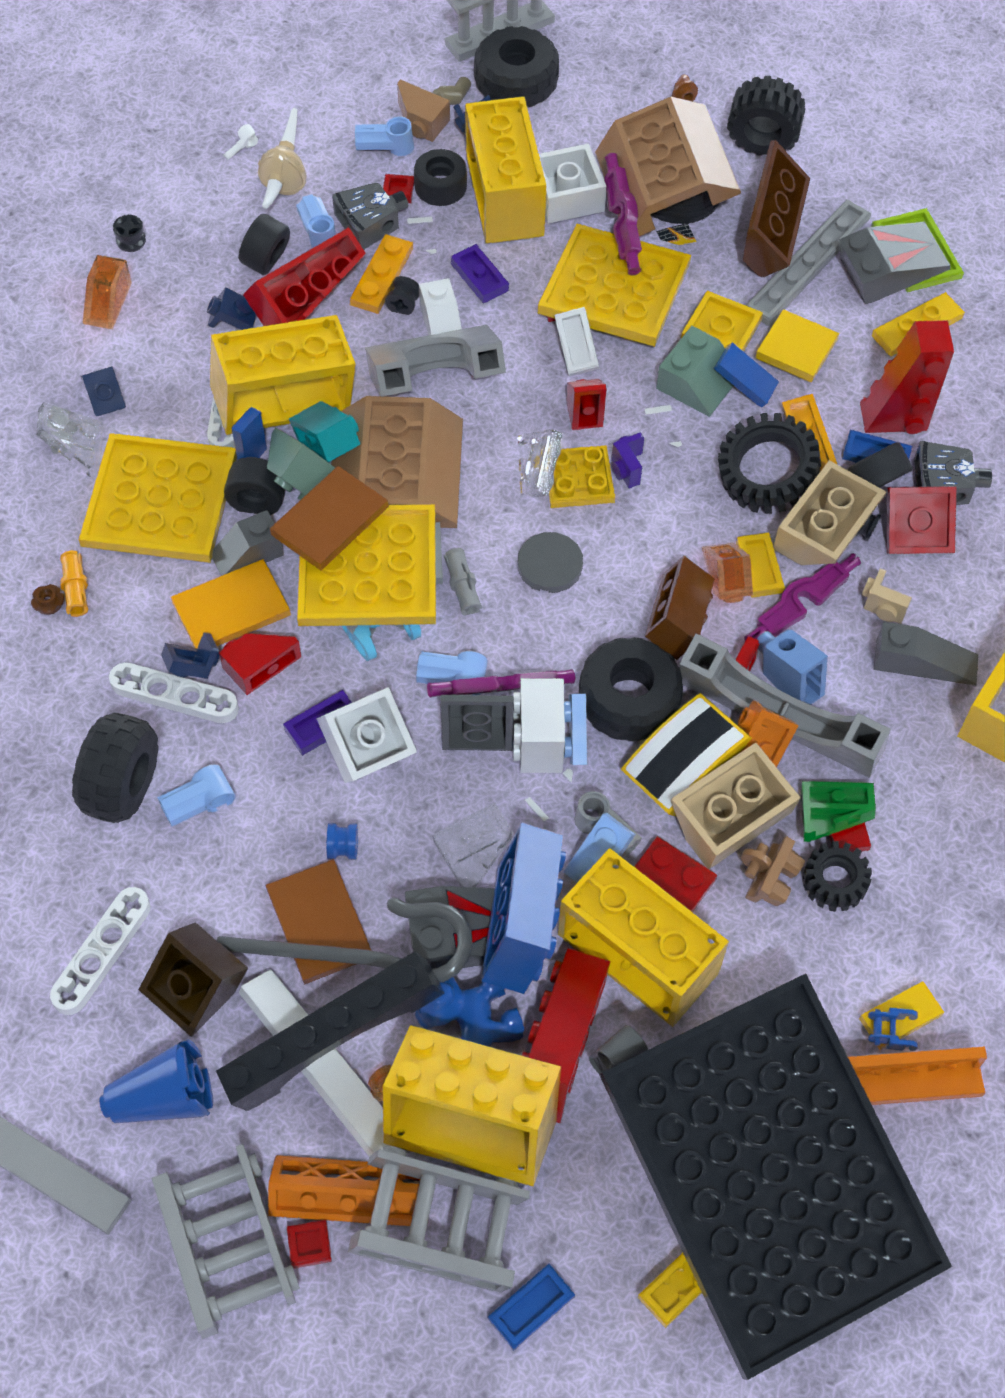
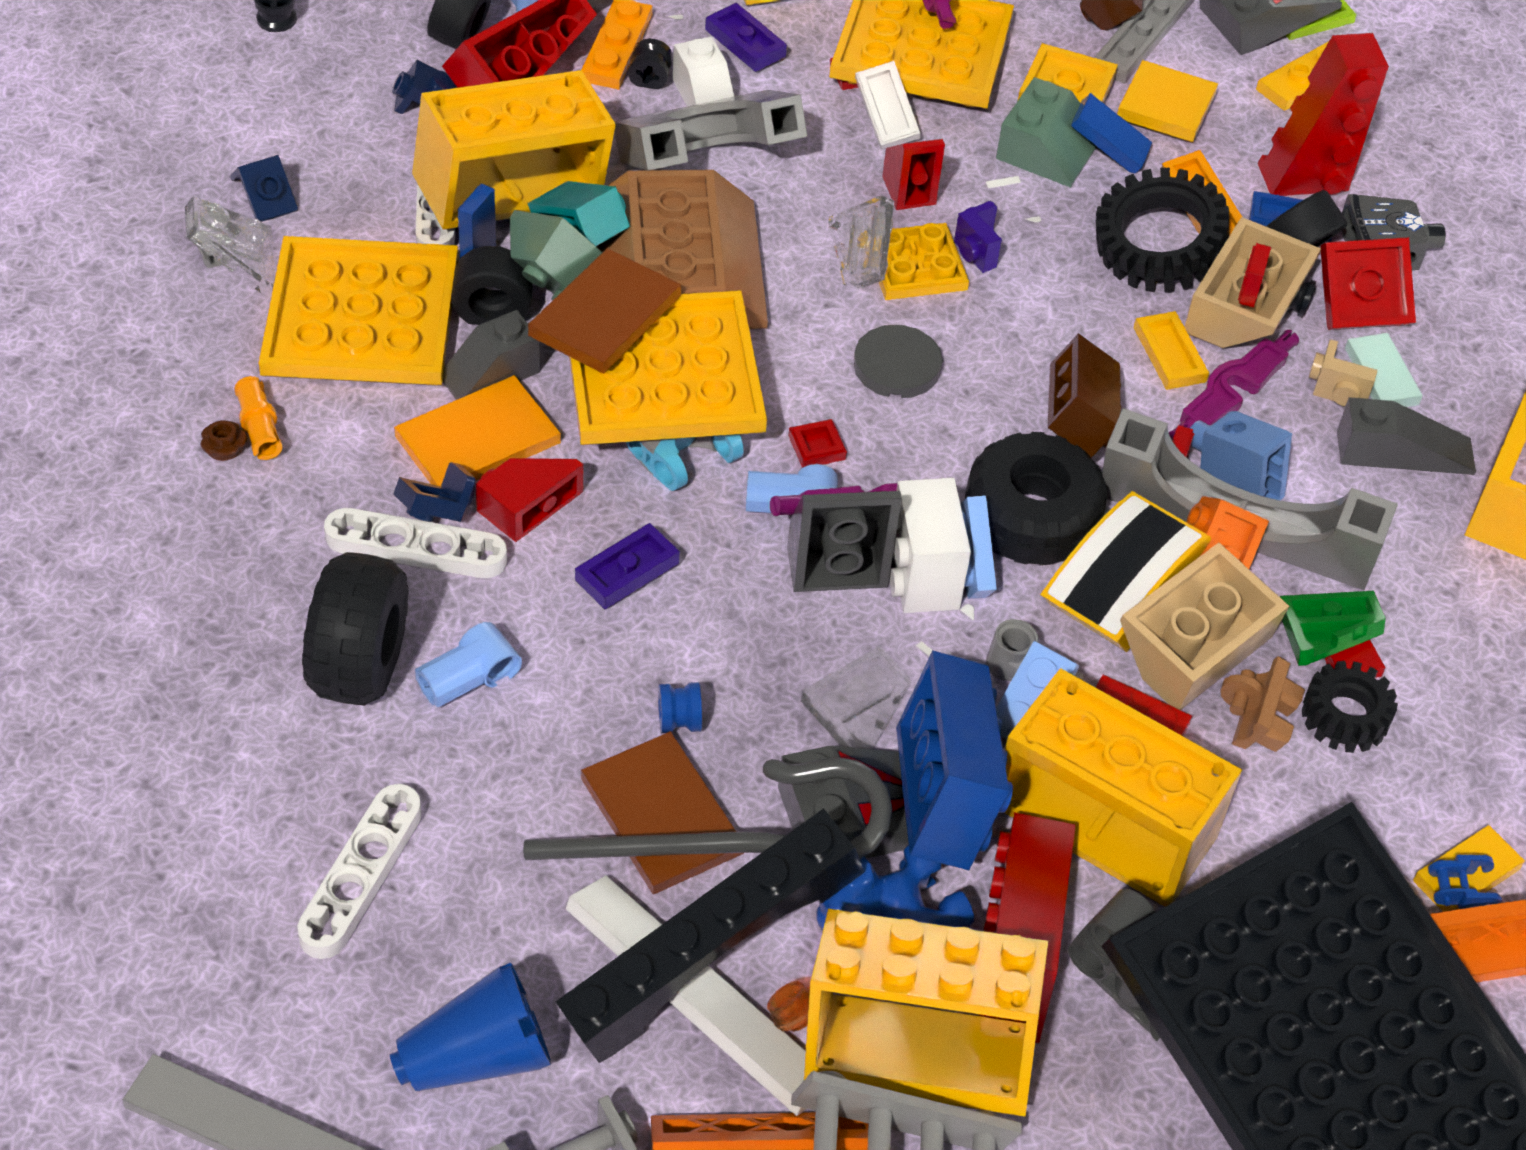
camera: 10 degrees left, 10 degrees down
(106, 291) = (254, 73): clear orange slope -> none
(192, 977) = (496, 892): dark brown slope -> none
(366, 735) = (694, 570): white brick -> none
(462, 581) = (786, 387): light grey pin -> none
(478, 628) = (817, 443): none -> red tile
(731, 571) = (1141, 356): clear orange slope -> none
(825, 516) = (1254, 274): none -> red tile
(921, 584) = (1392, 378): none -> light aqua tile

